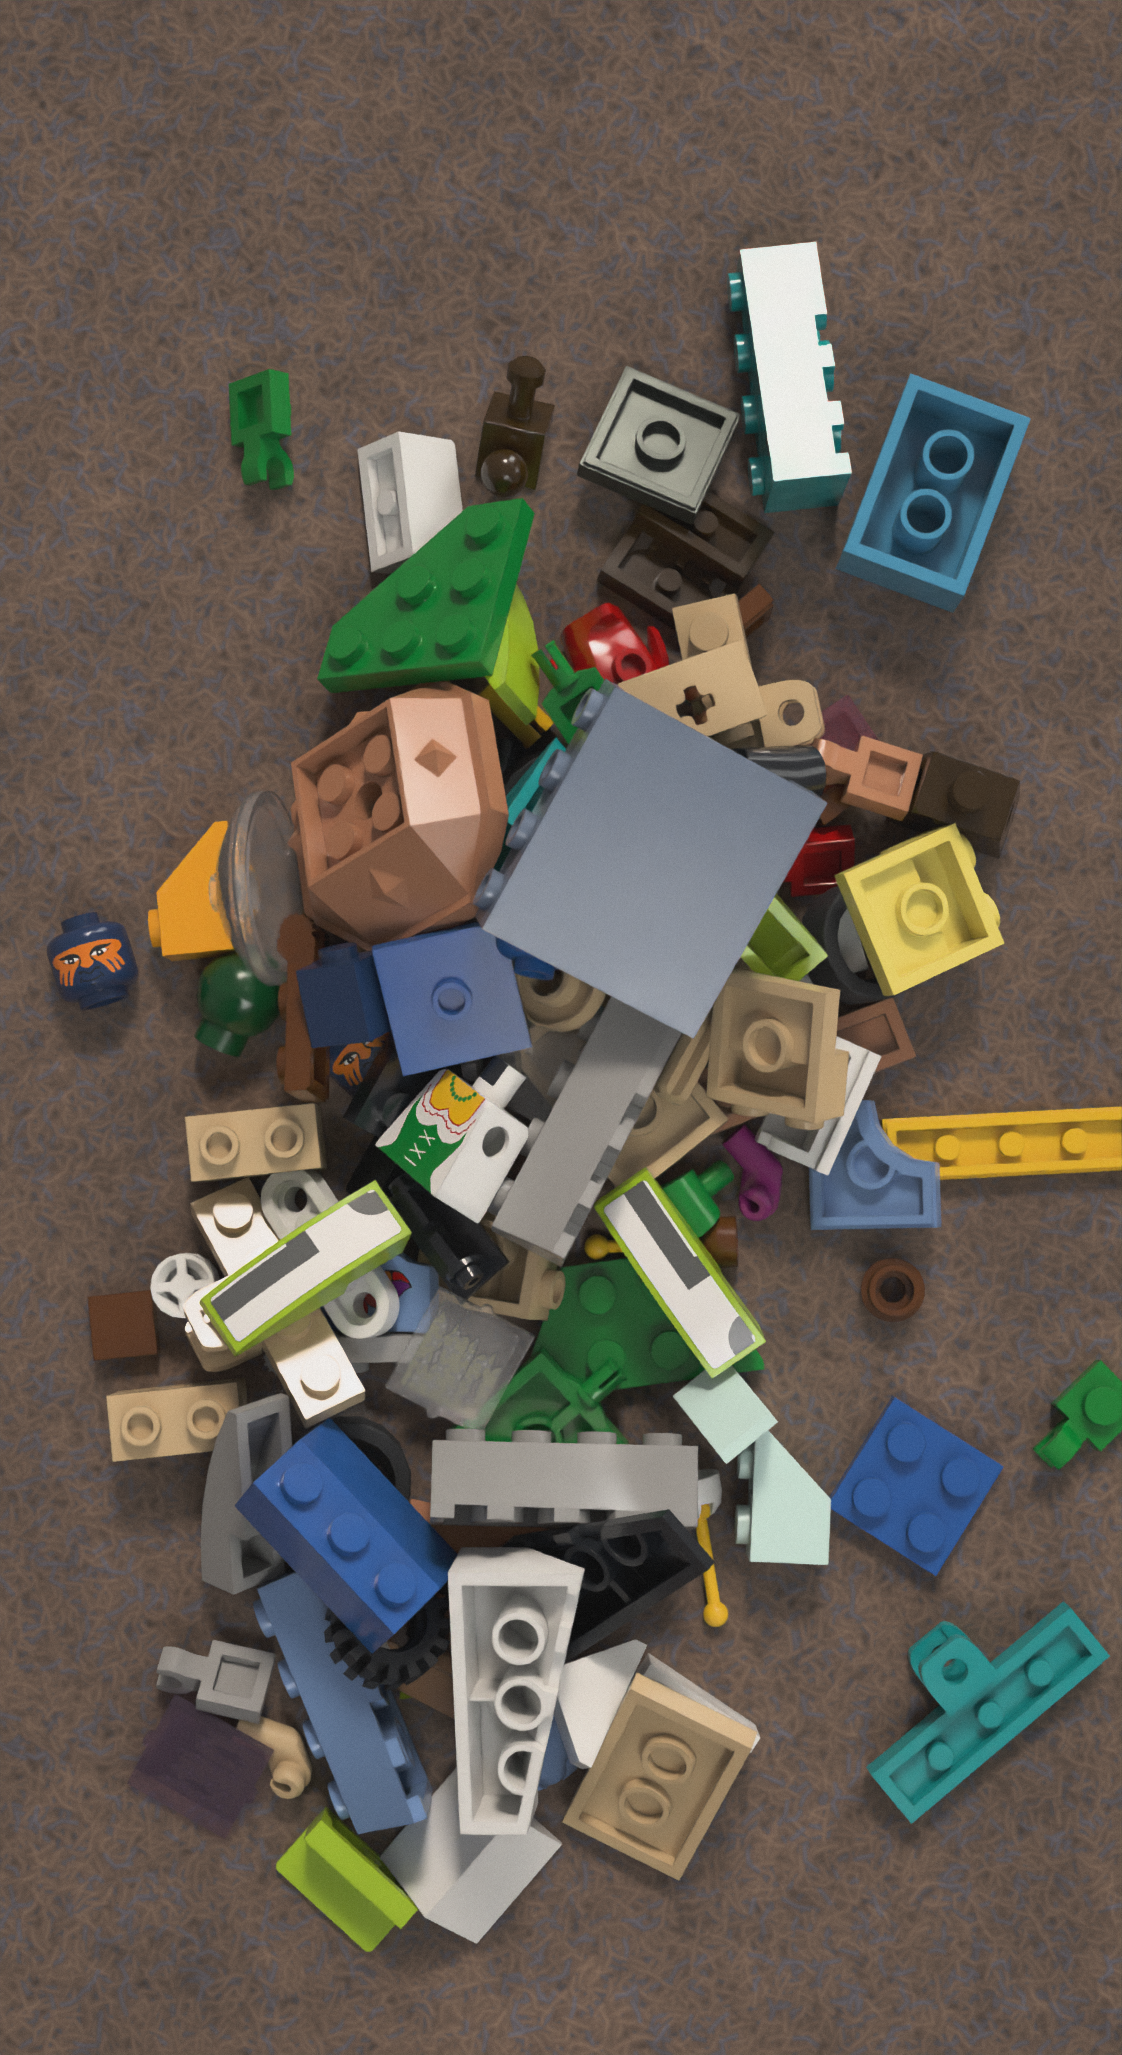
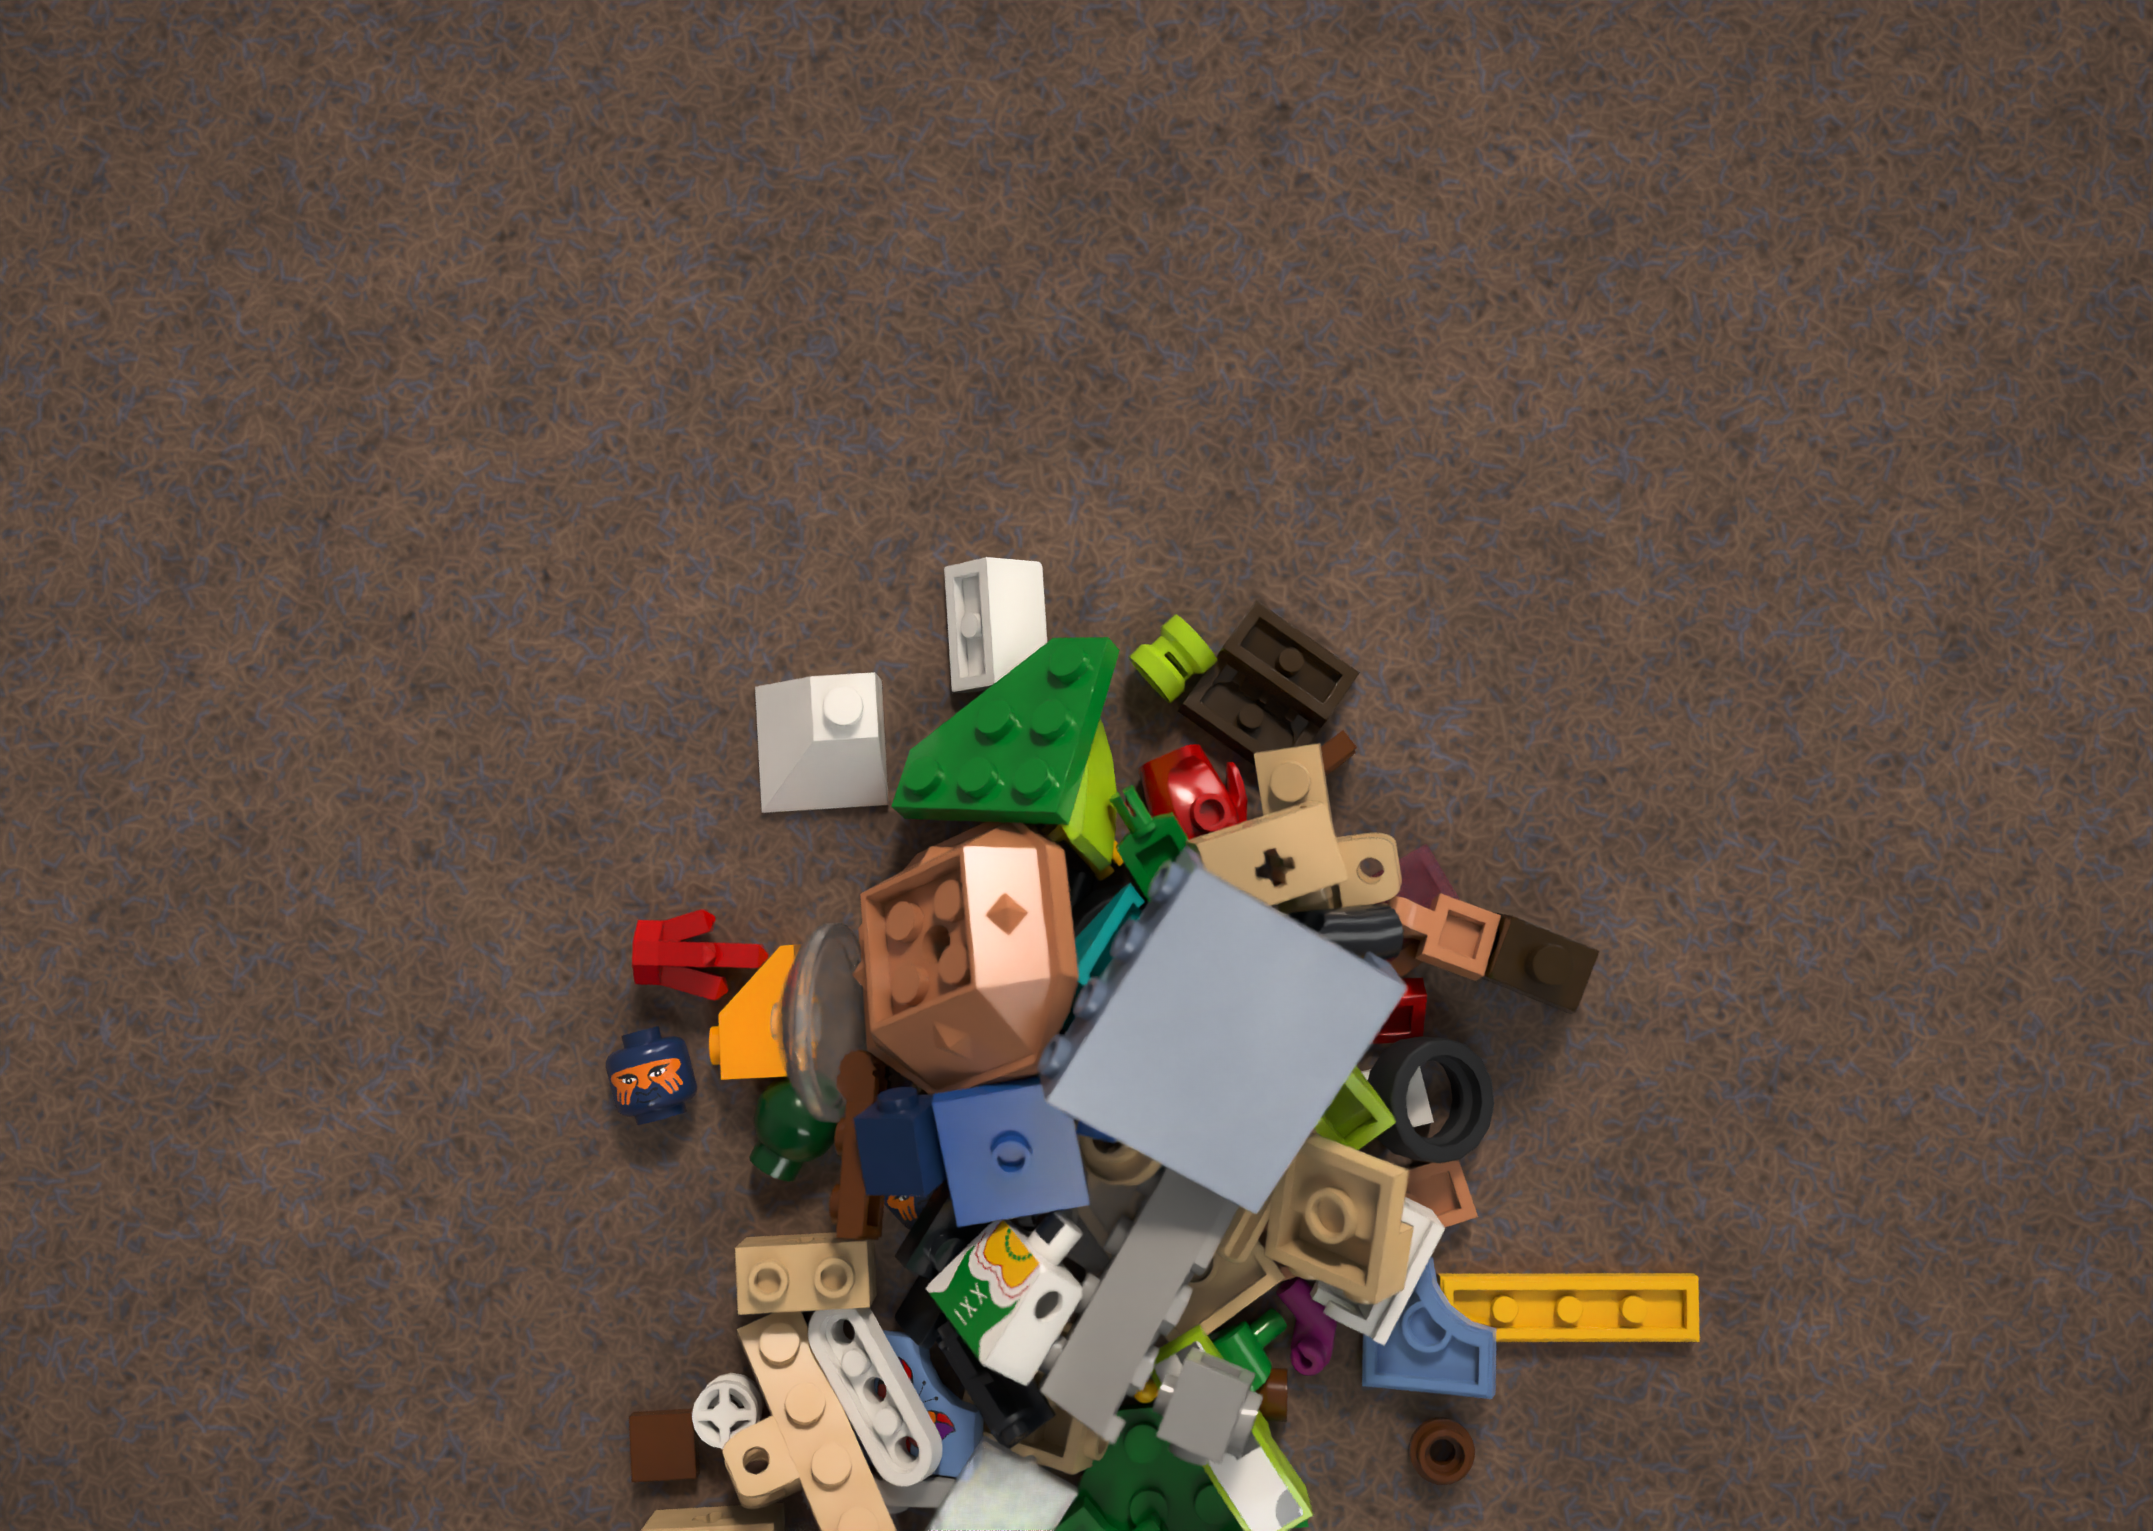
camera: 10 degrees right, 0 degrees up
(113, 839) = (667, 960): none -> red rock
(244, 626) = (822, 743): none -> white slope
(258, 421) = (845, 536): green plate -> none
(306, 1268) = (848, 1418): slope -> none
(515, 431) = (1103, 559): dark brown piece -> none
(588, 526) = (1183, 648): none -> lime wheel
(656, 1237) = (1207, 1409): none -> light grey brick
(658, 445) = (1247, 579): tile -> none
(788, 379) = (1381, 519): wedge -> none
(920, 908) = (1492, 1077): light yellow plate -> none
(933, 493) = (1523, 645): dark azure brick -> none

